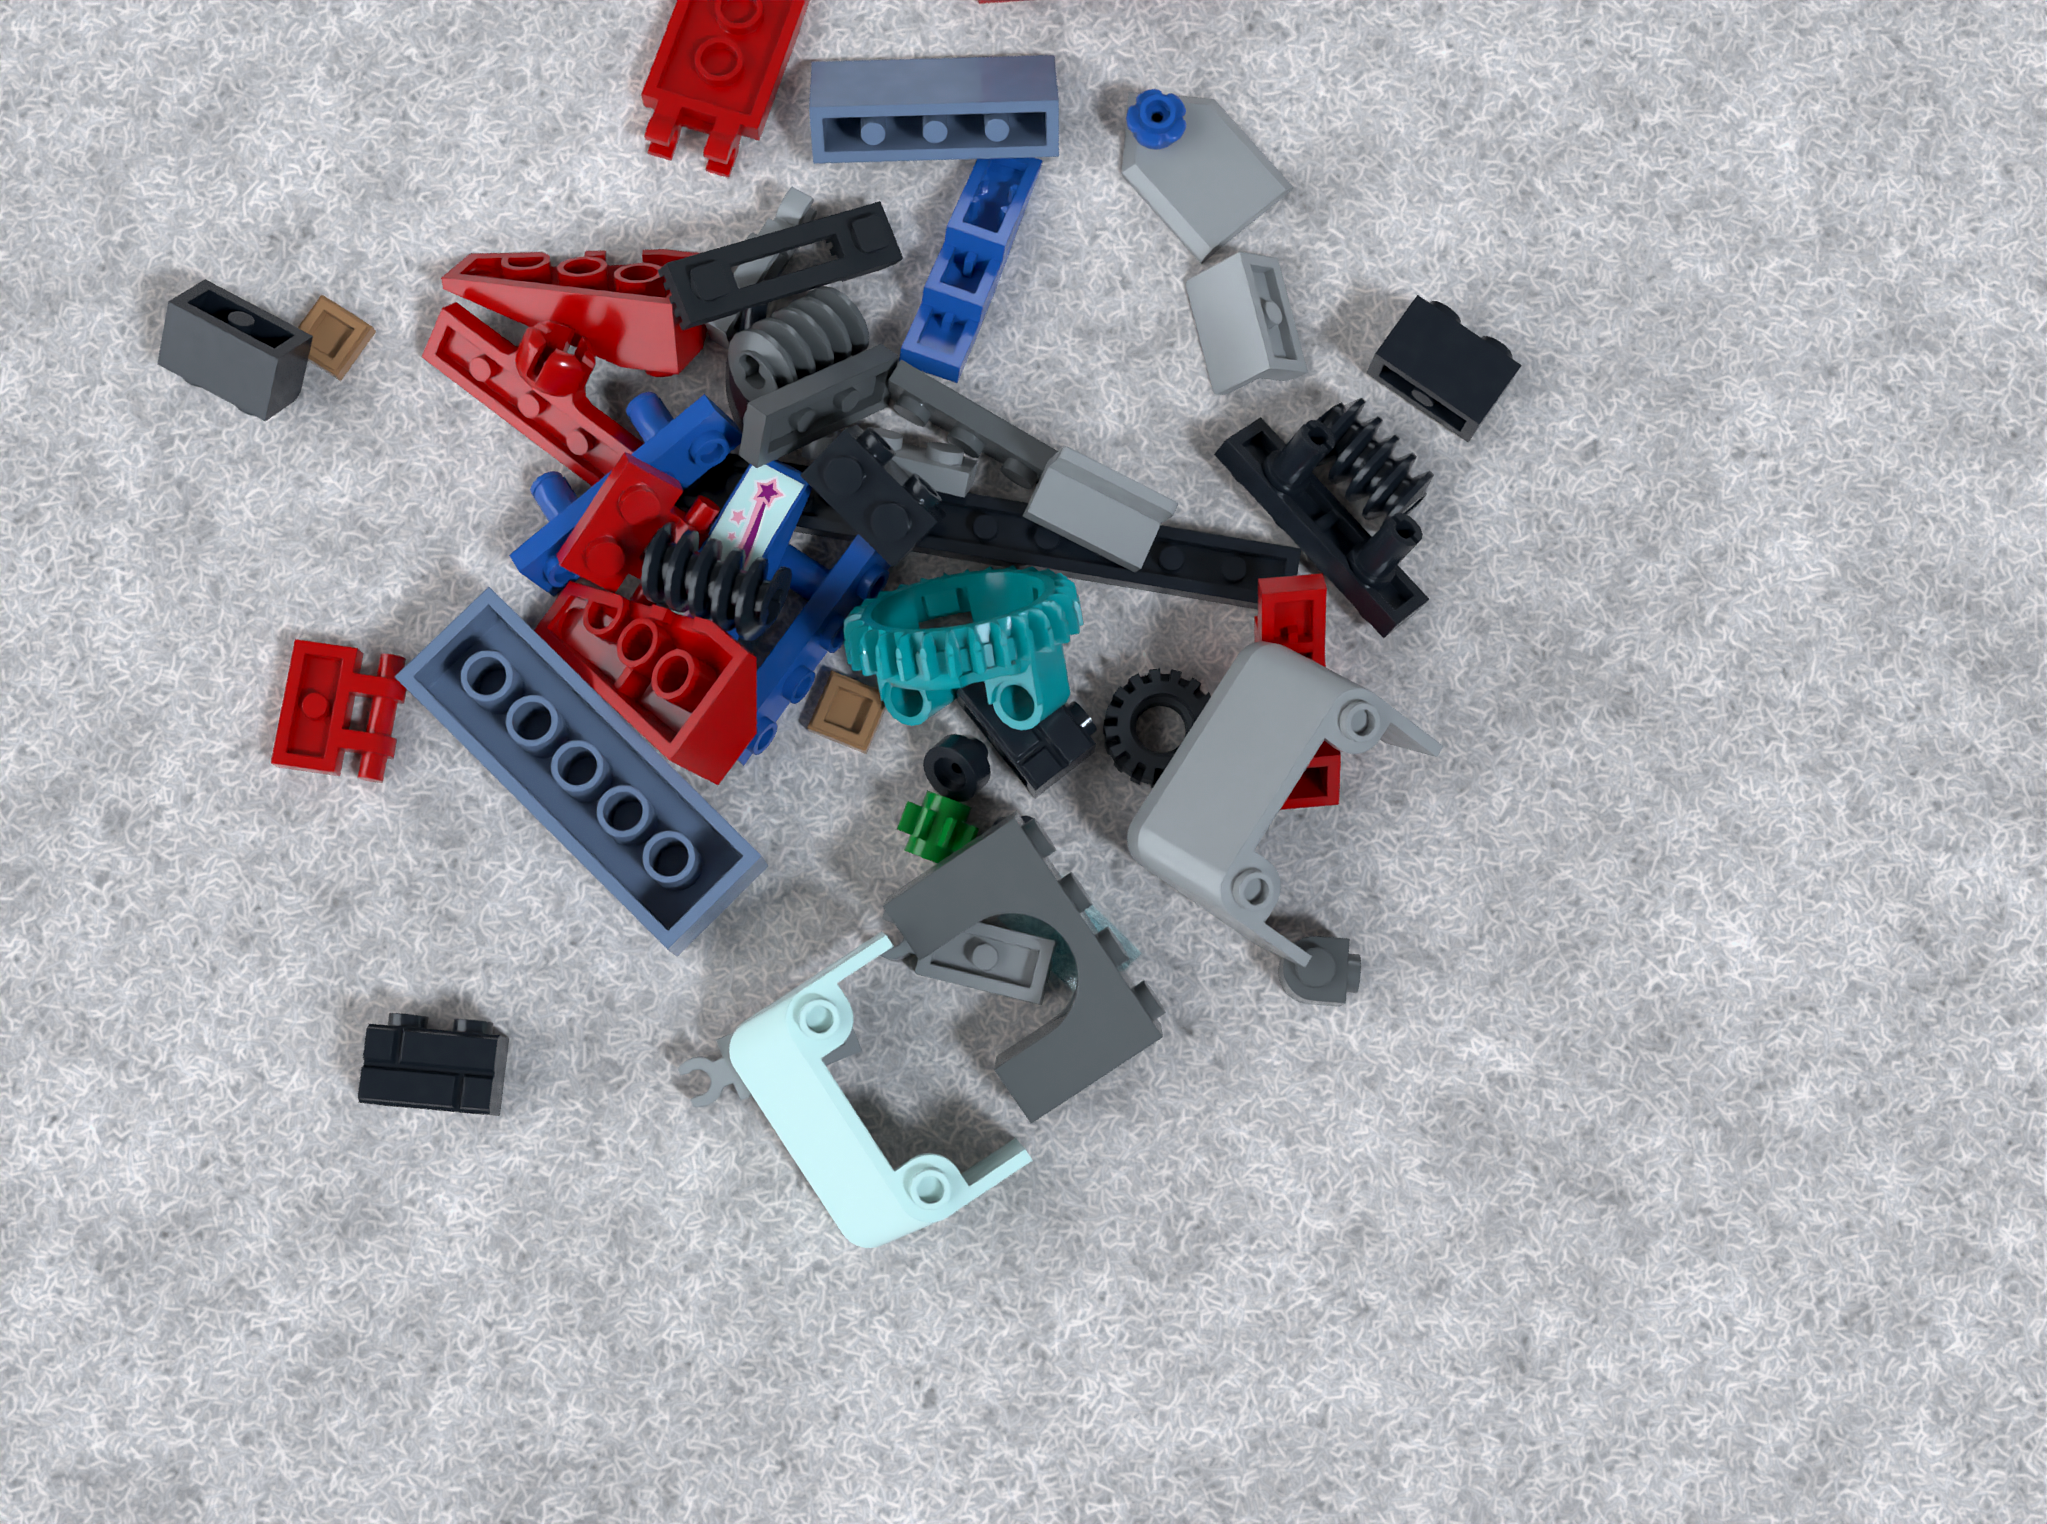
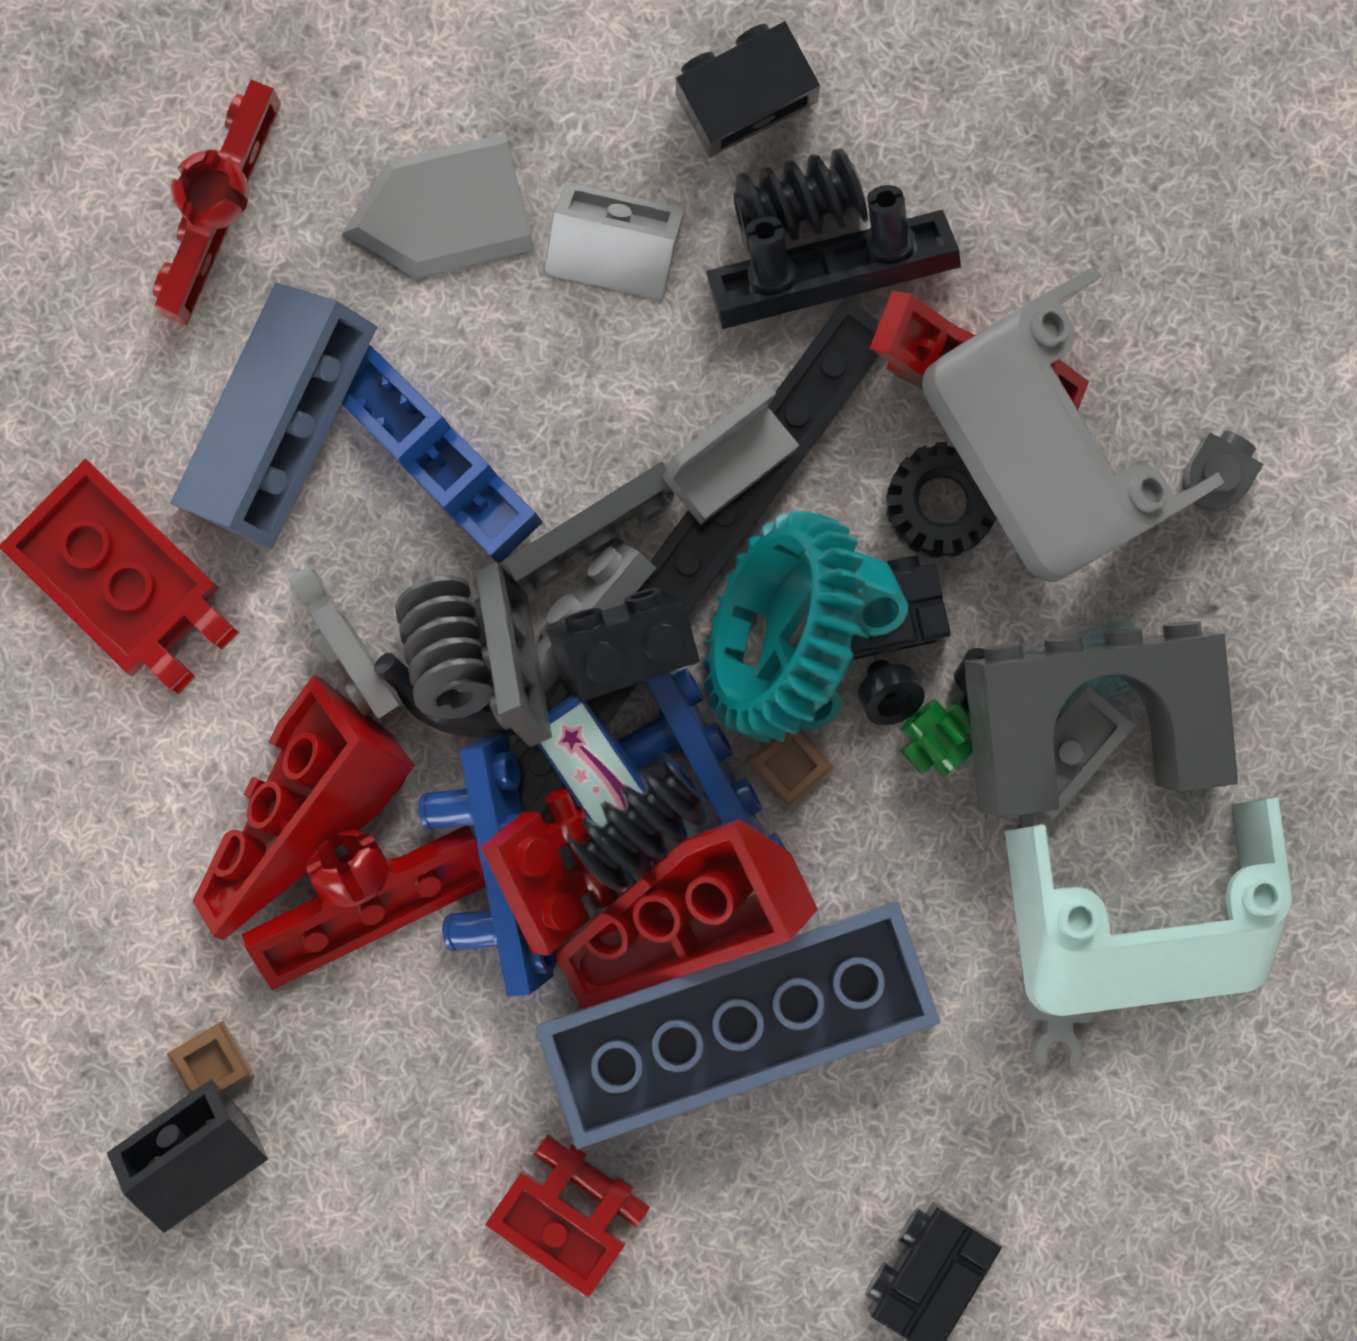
camera: 60 degrees left, 5 degrees up
(707, 288) = (358, 700): black container -> none
(1156, 134) = (399, 233): blue plate -> none

